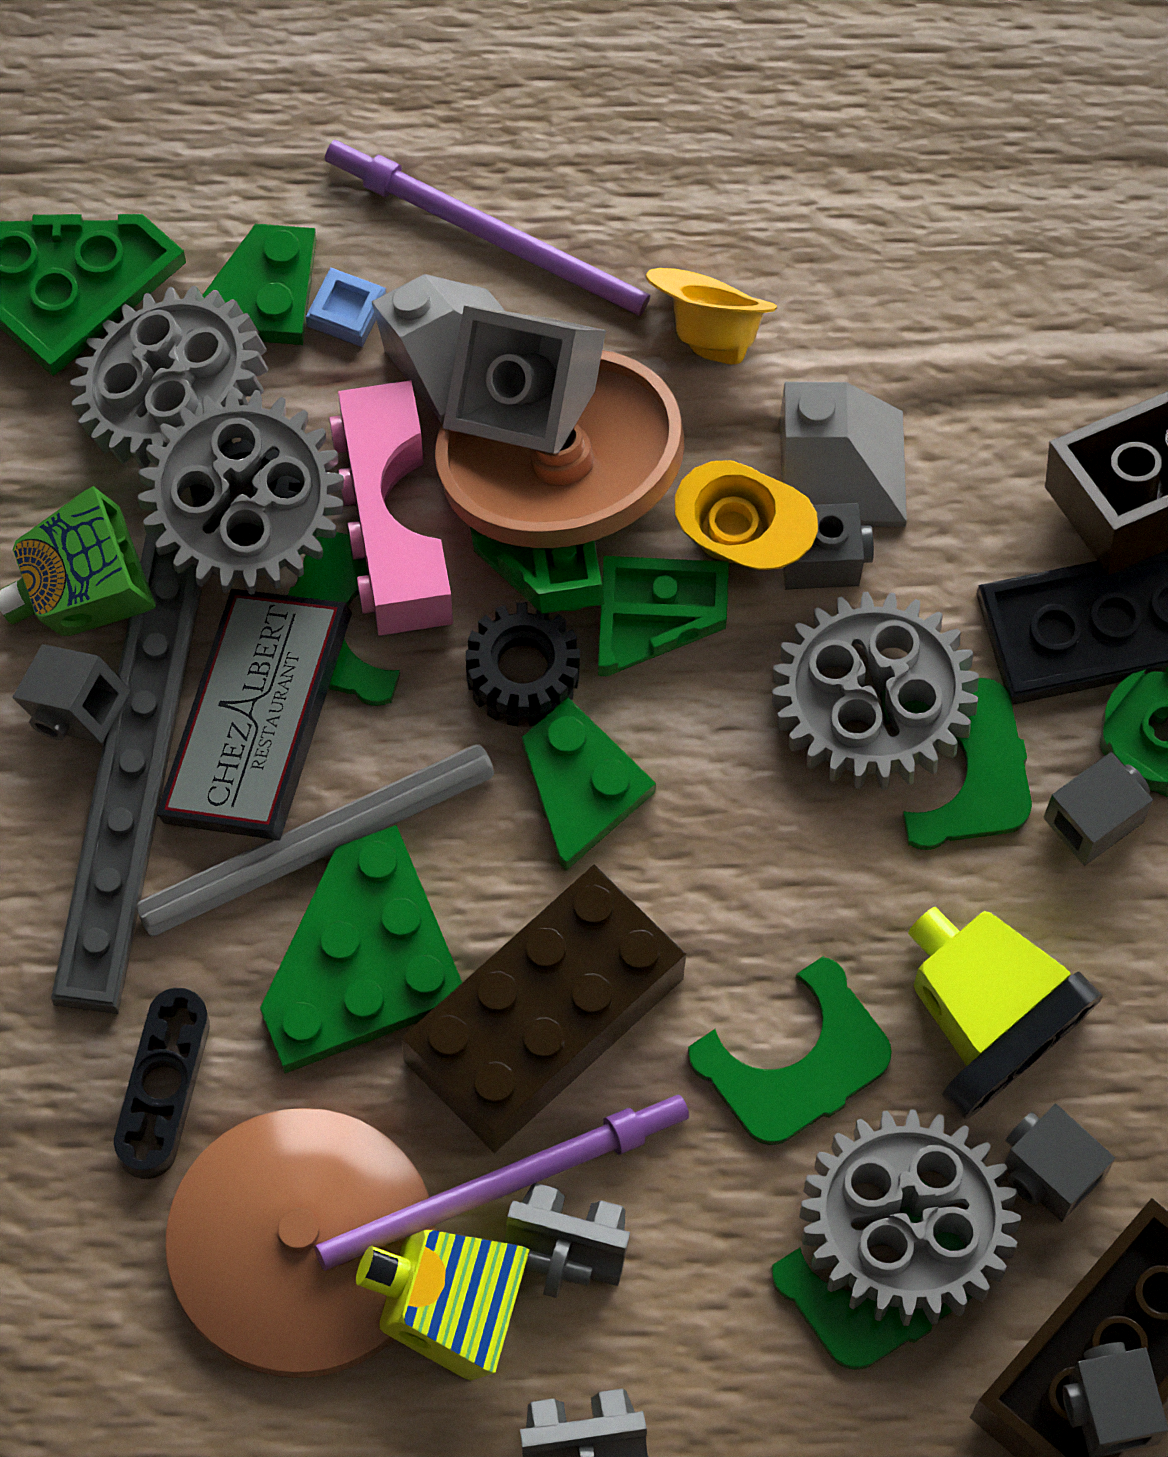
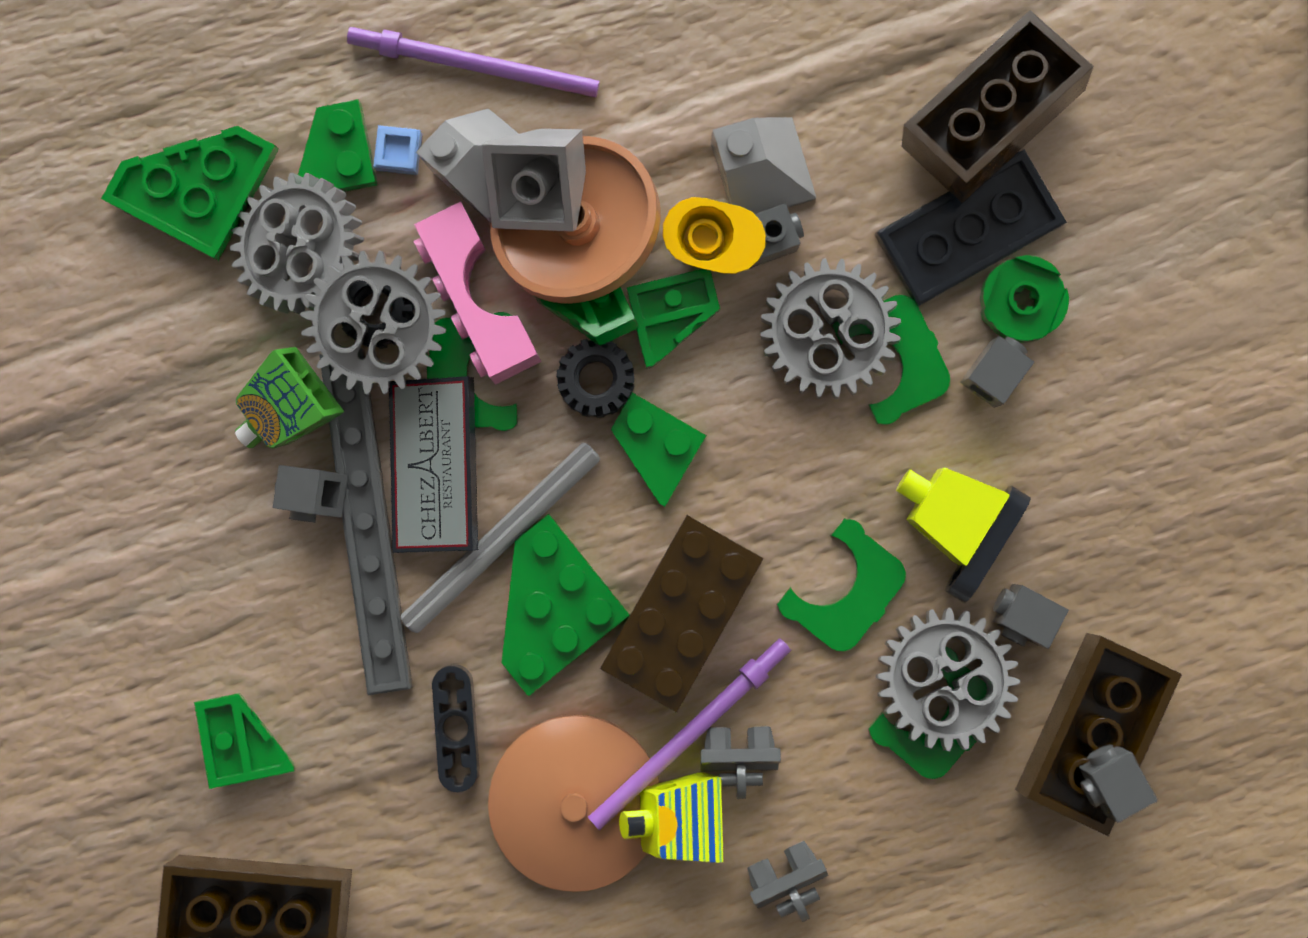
camera: 15 degrees left, 20 degrees up
(710, 314) = (645, 83): yellow piece -> none

